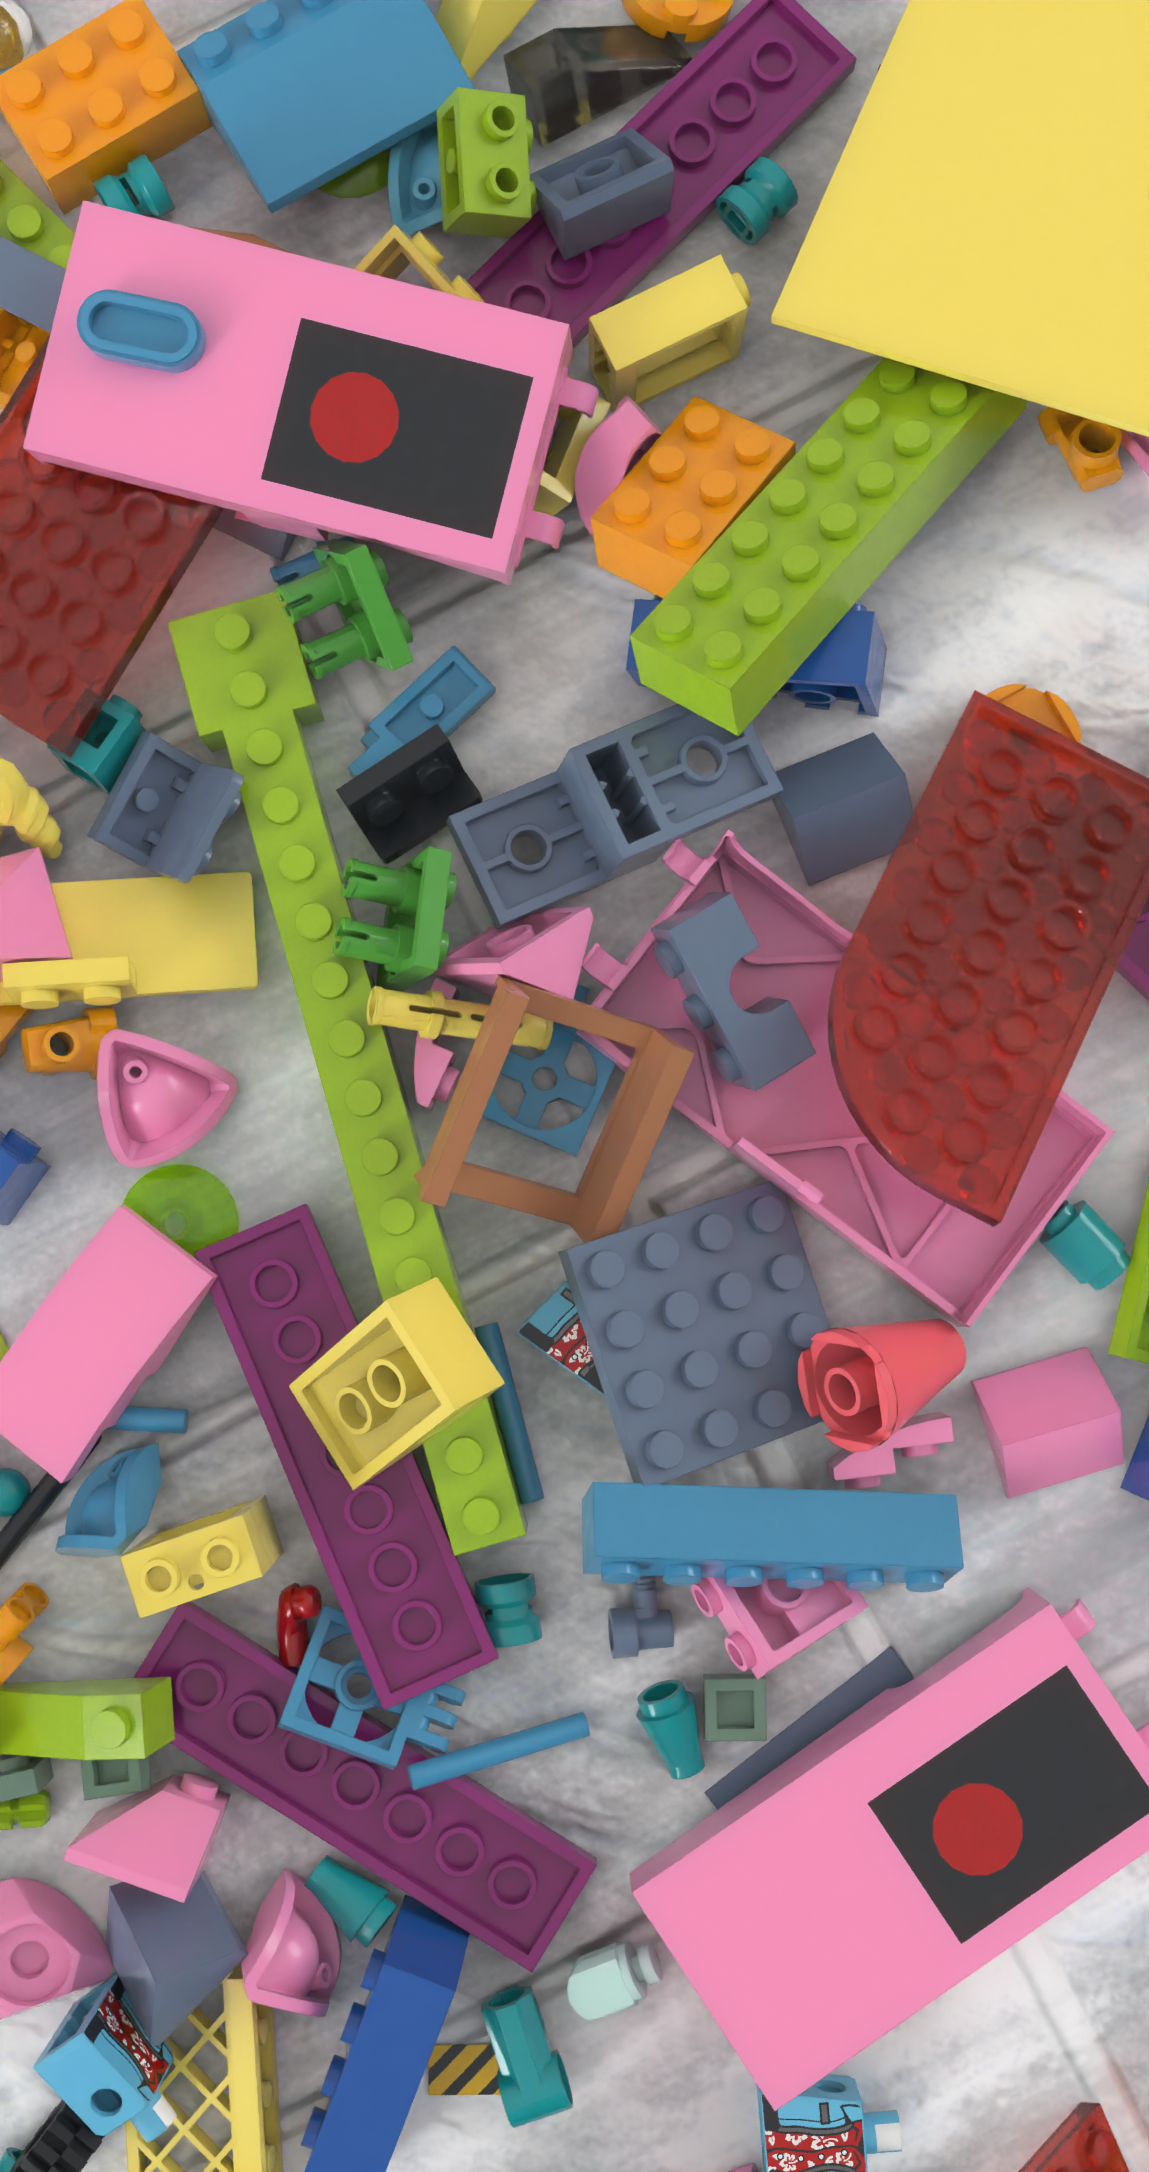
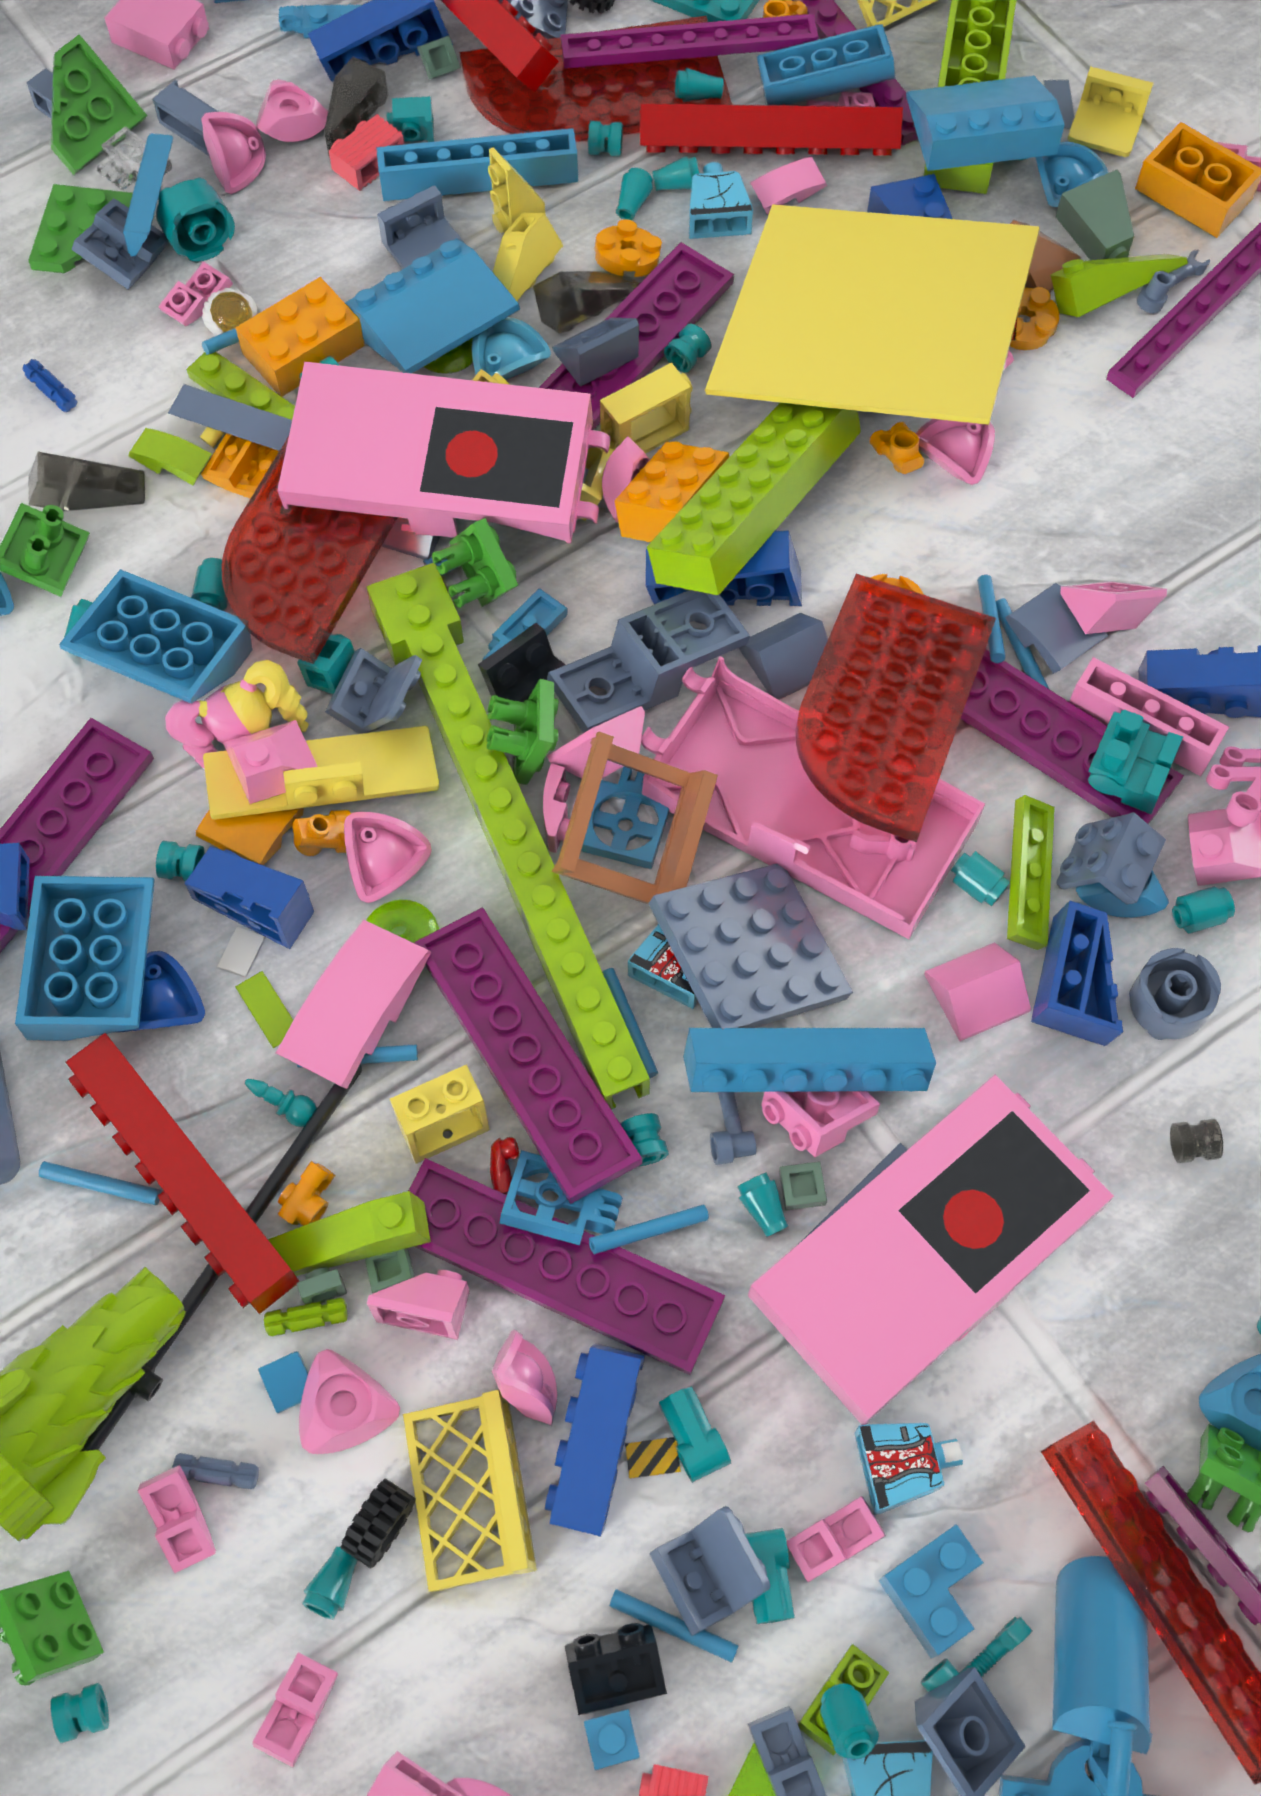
camera: 10 degrees left, 20 degrees down
(107, 2065) = (393, 1447): medium azure torso -> none
(112, 1504) = (371, 1104): dark azure hat -> none
(141, 331) = (344, 421): dark azure tile -> none
(169, 1951) = (437, 1378): sand blue slope -> none
(351, 1900) = (559, 1342): teal cone -> none
(395, 1381) = (553, 986): light yellow slope -> none
(437, 1015) = (553, 779): light yellow pin -> none
(485, 163) = (529, 338): lime brick -> none
(612, 1979) = (746, 1374): light aqua arm -> none
(701, 951) = (748, 774): sand blue arch -> none
(877, 1377) = (859, 956): coral cone -> none
(915, 1438) = (891, 1002): bright pink slope -> none

